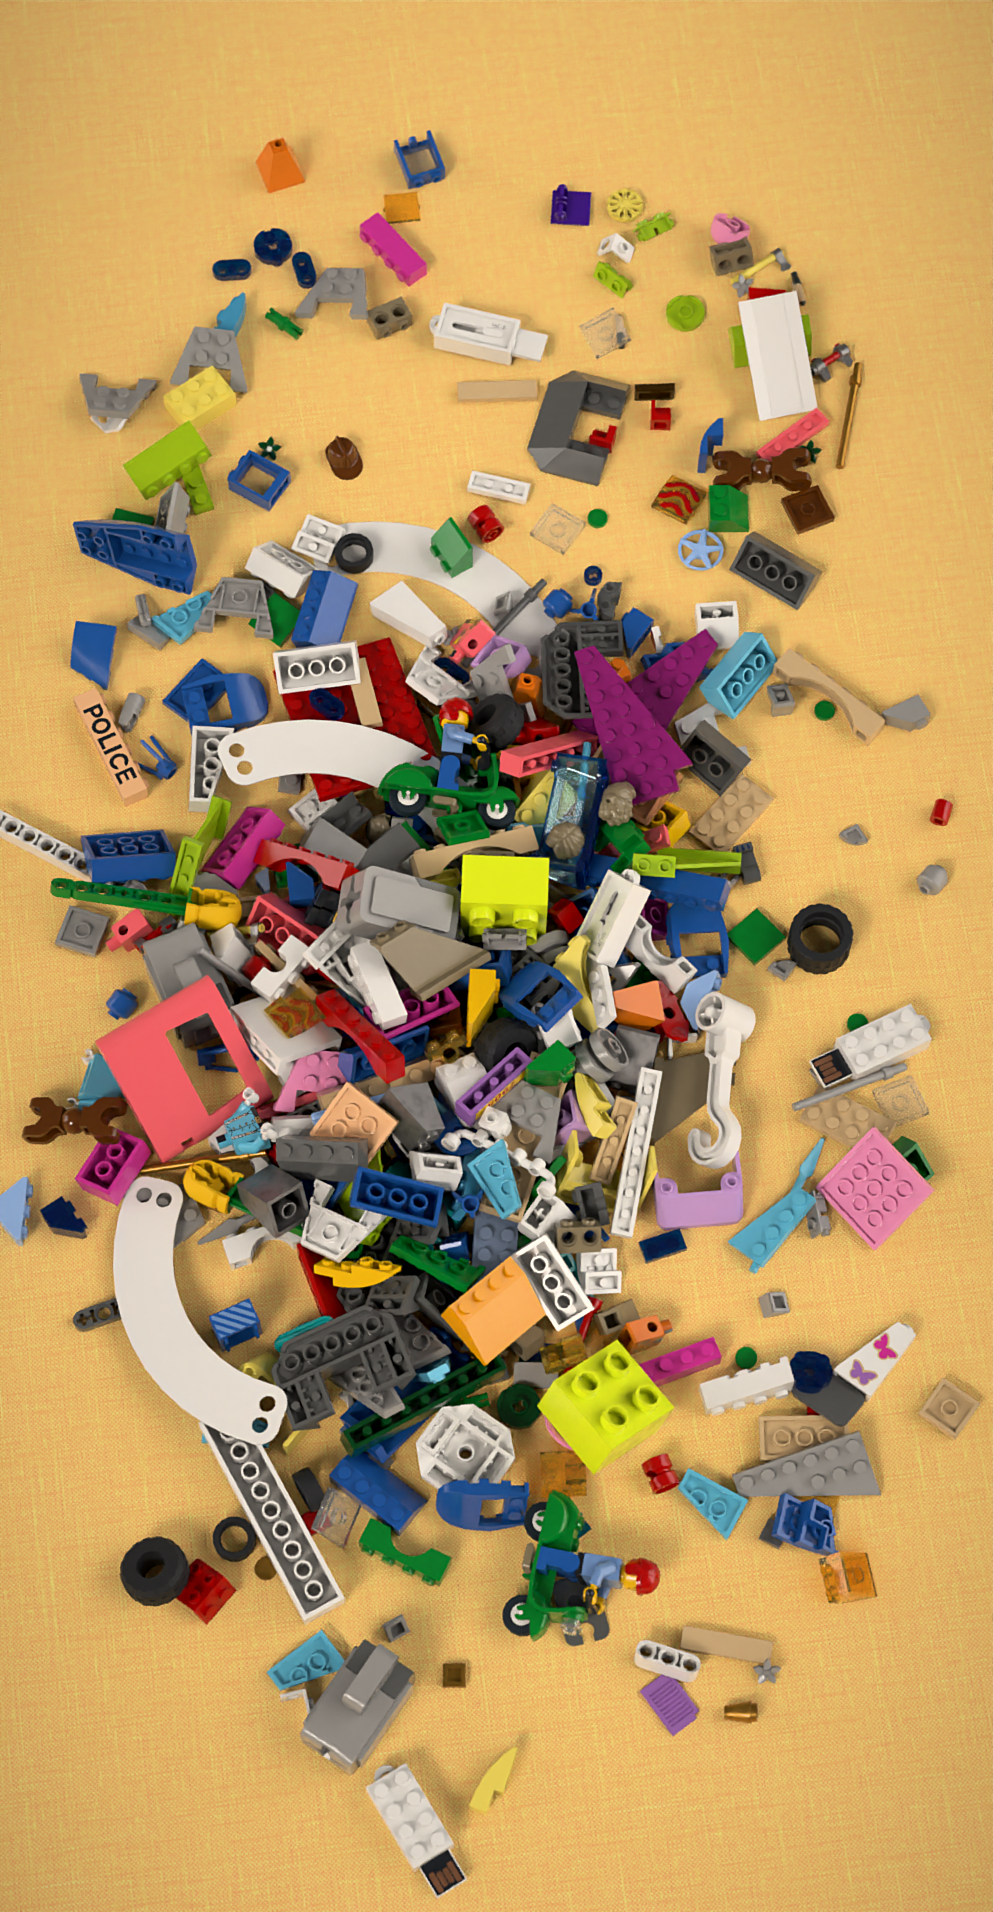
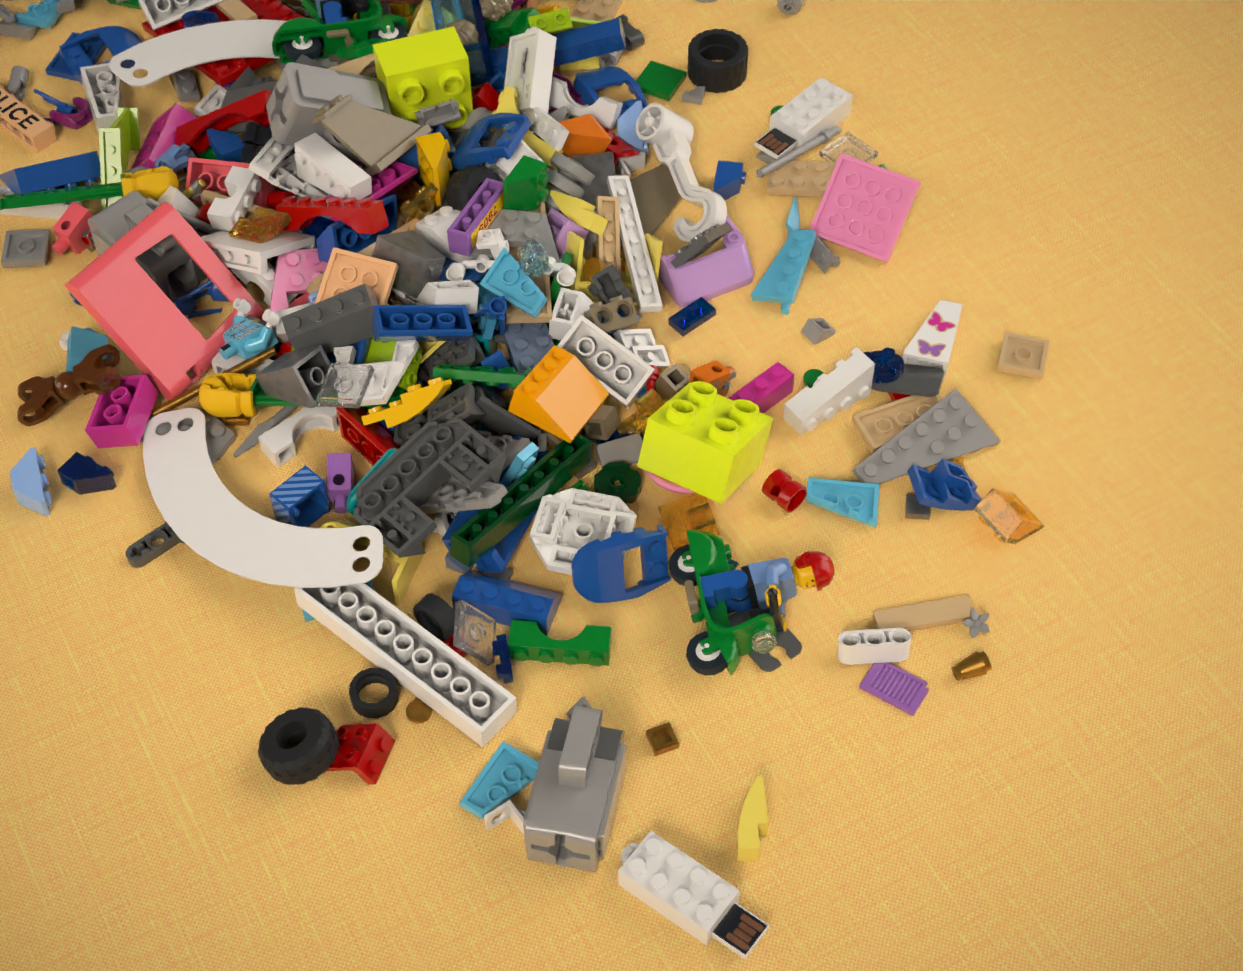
camera: 20 degrees left, 15 degrees down
(172, 784) = (75, 120): none -> magenta helmet
(244, 882) = (174, 157): none -> medium blue rock
(280, 1308) = (340, 479): none -> medium lavender torso
(309, 1229) = (345, 385): none -> clear tile
(349, 1560) = (501, 649): none -> clear blue plate
(522, 1163) = (533, 258): none -> clear light blue rock
(586, 1170) = (592, 267): none -> pearl gold tile
(692, 1186) = (699, 244): none -> dark grey plate
(764, 1095) = (728, 178): none -> blue slope

